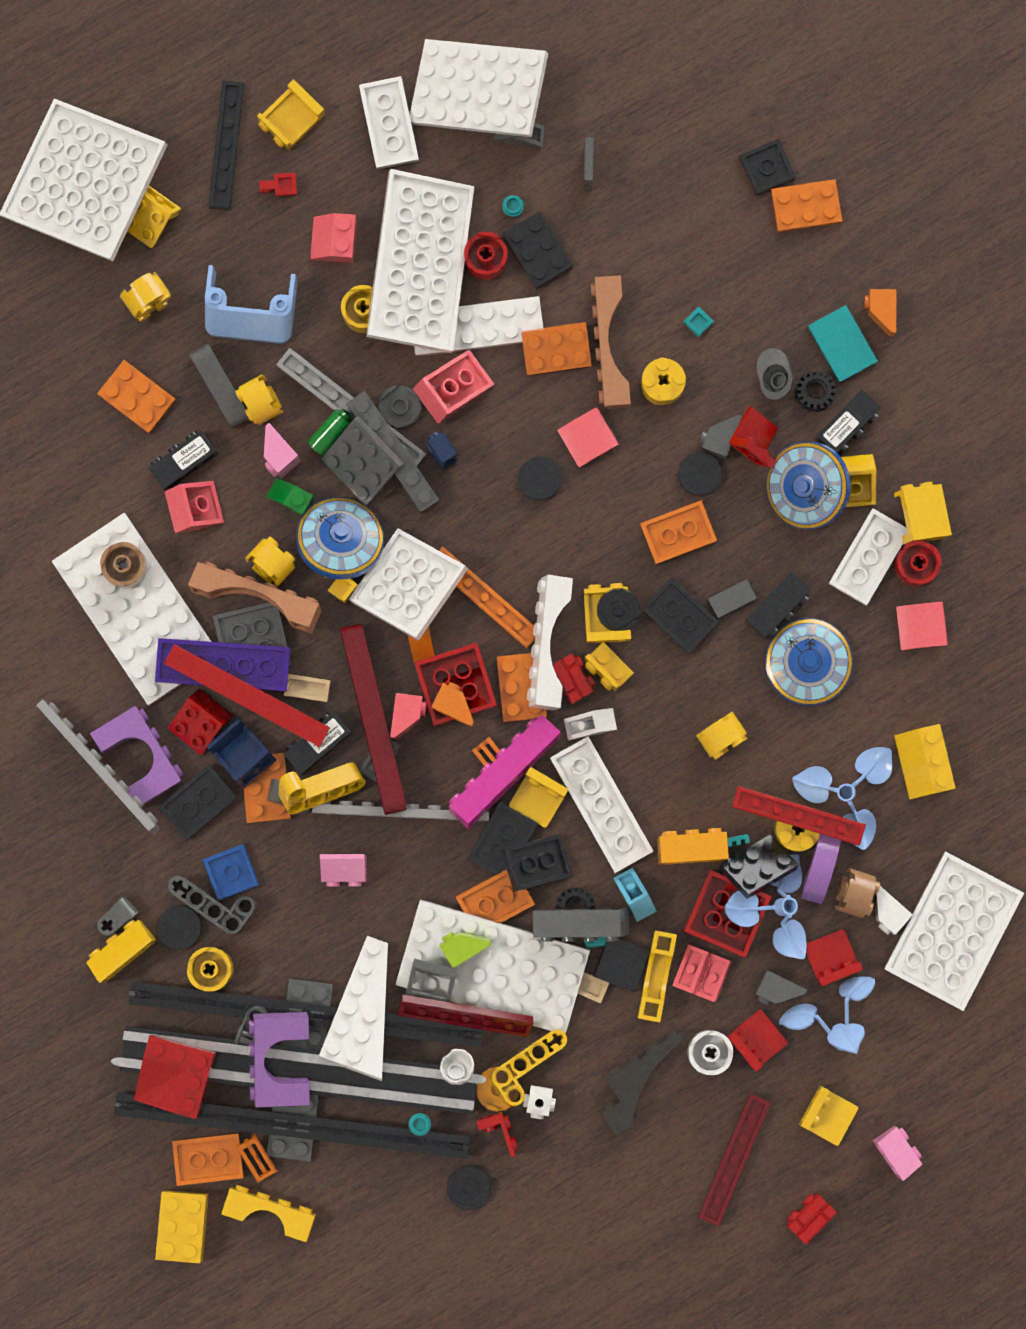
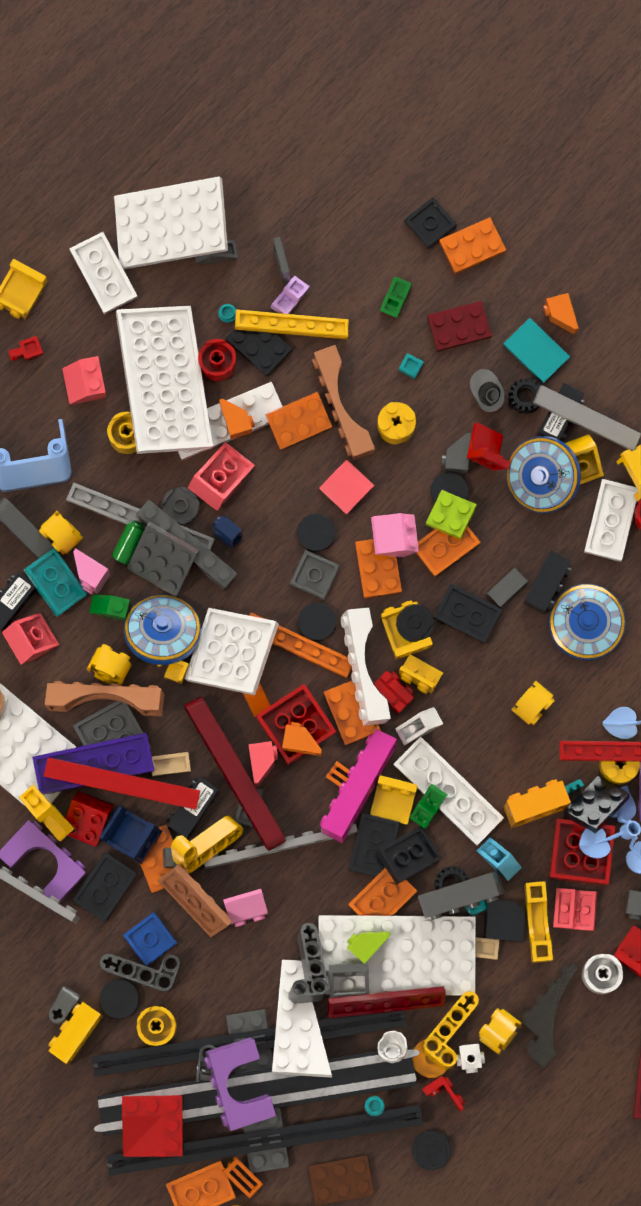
camera: 20 degrees left, 5 degrees down
(155, 700) = (46, 812): none -> yellow panel
(238, 452) = (55, 582): none -> teal tile
(289, 845) = (195, 900): none -> nougat plate
(362, 1192) = (341, 1180): none -> reddish brown plate
(396, 948) = (310, 962): none -> dark grey beam
(487, 328) = (236, 419): none -> orange slope
(512, 577) = (316, 621): none -> black tile
(524, 525) = (314, 575): none -> dark grey tile
(574, 815) = (428, 806): none -> green slope
(579, 238) = (291, 324): none -> yellow tile
(579, 1082) = (499, 1031): none -> yellow brick
(587, 207) = (290, 296): none -> lavender slope
(597, 536) = (377, 572): none -> orange plate
(624, 506) = (395, 535): none -> bright pink slope
(693, 501) = (451, 514): none -> lime plate
(704, 240) = (395, 297): none -> green slope
(765, 292) = (459, 326): none -> dark red plate
(875, 436) = (586, 418): none -> light grey tile

